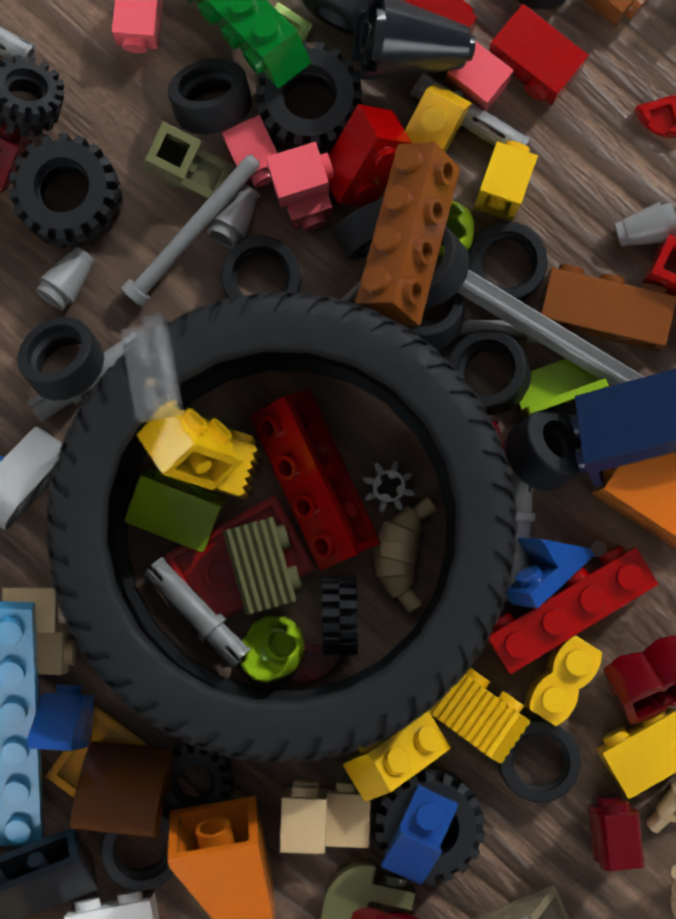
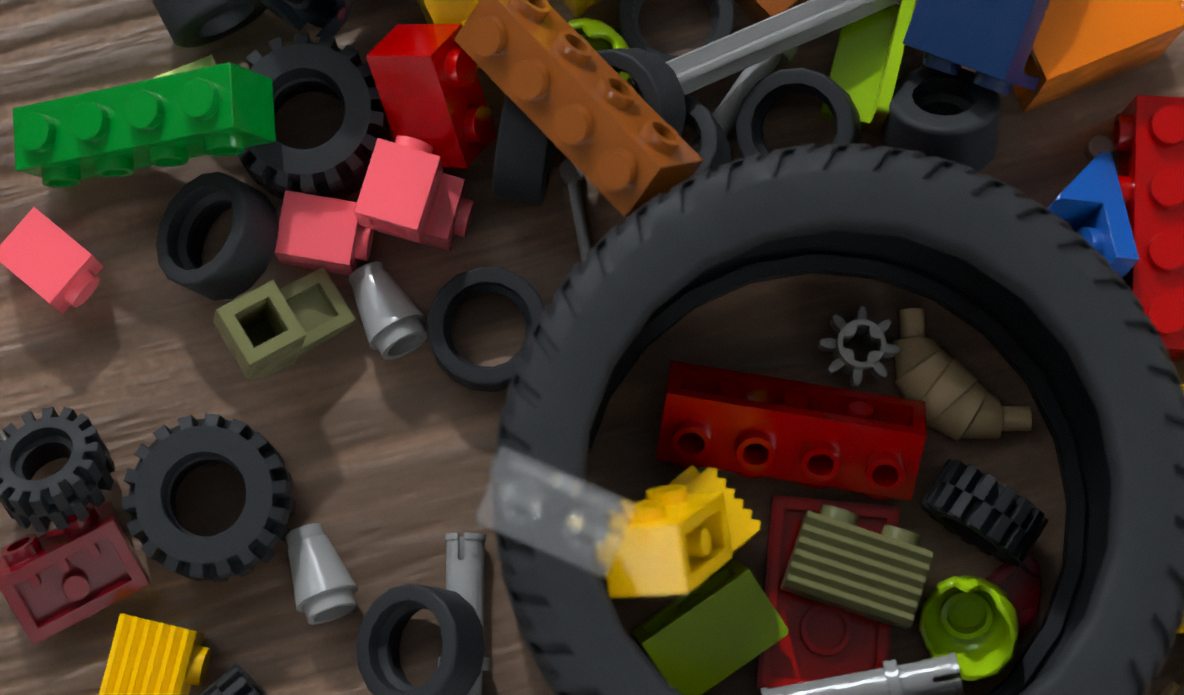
camera: 60 degrees left, 5 degrees down
(231, 185) = (371, 376): light grey bar -> none

